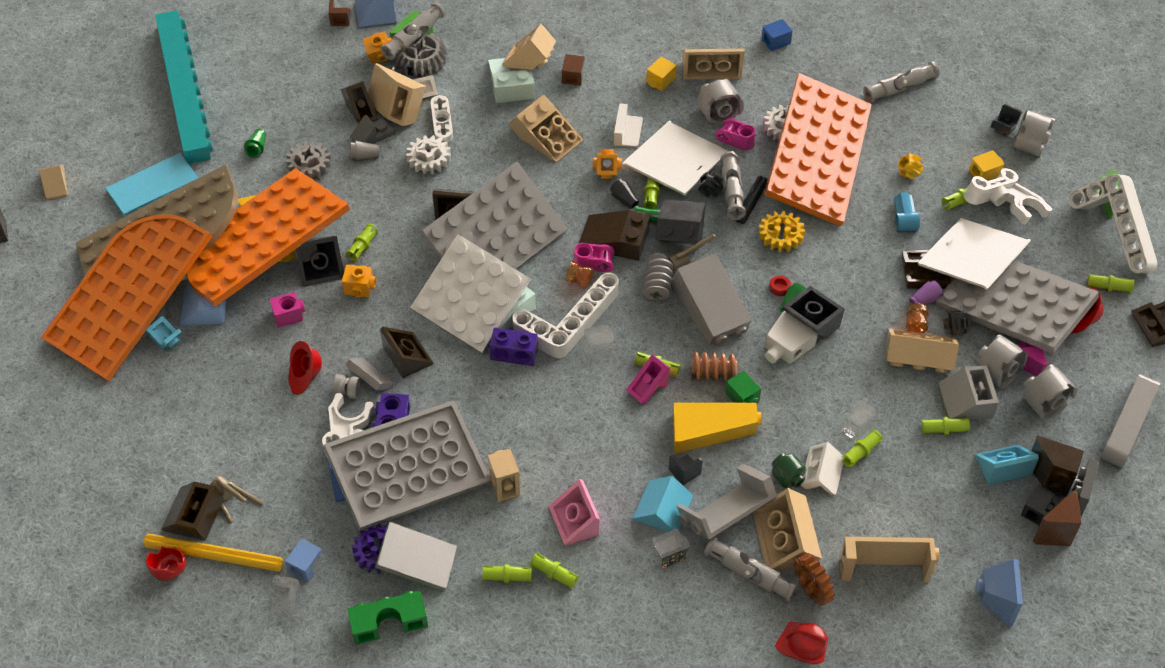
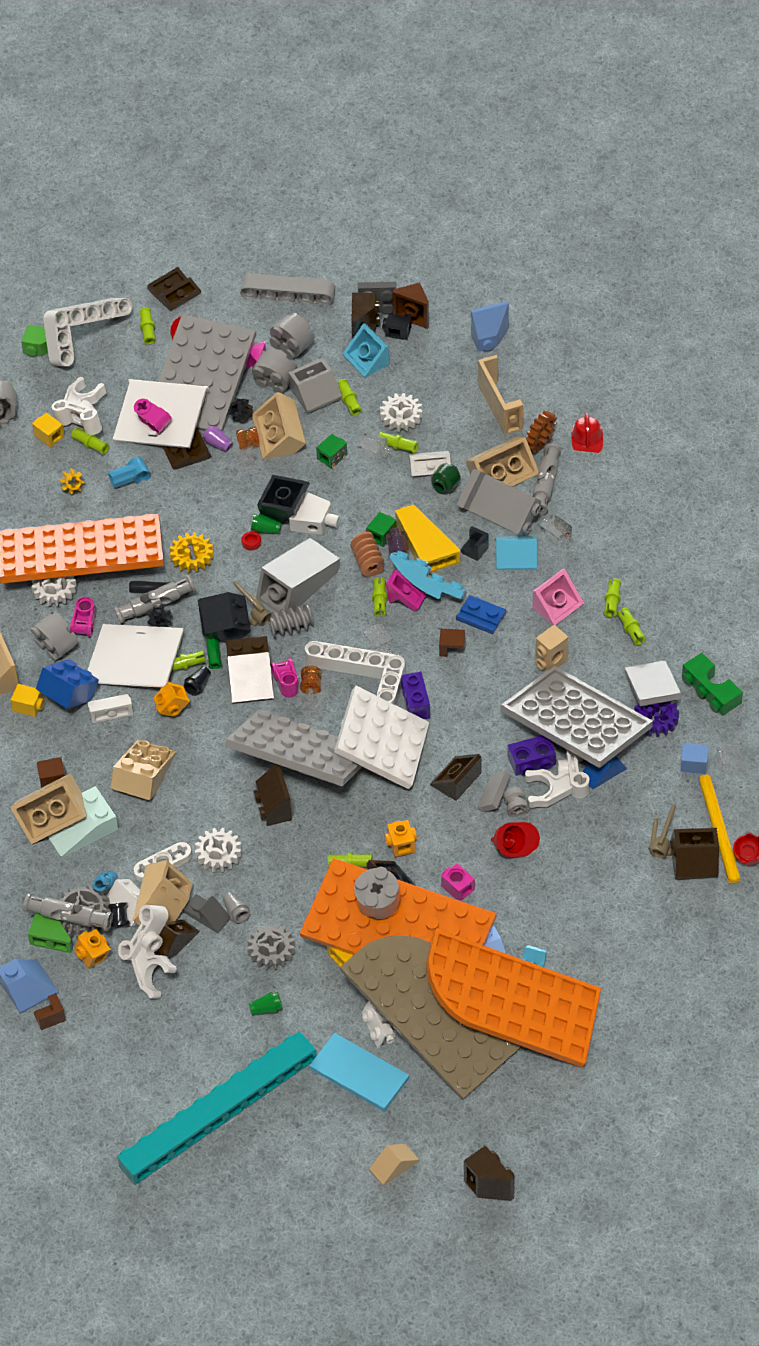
camera: 110 degrees left, 0 degrees up
(280, 211) = (377, 881): none -> light grey brick
(354, 72) = (144, 944): none -> white piece
(436, 68) = (105, 878): none -> dark azure pin
(567, 398) = (450, 639): none -> reddish brown panel
(593, 444) = (481, 614): none -> blue plate
(654, 397) = (418, 574): none -> medium azure slope
(658, 94) = (67, 683): none -> blue brick
(716, 393) = (397, 540): none -> brick
(870, 383) = (331, 451): none -> green brick
(912, 472) = (401, 412): none -> white gear
(966, 237) = (152, 415): none -> dark pink piece

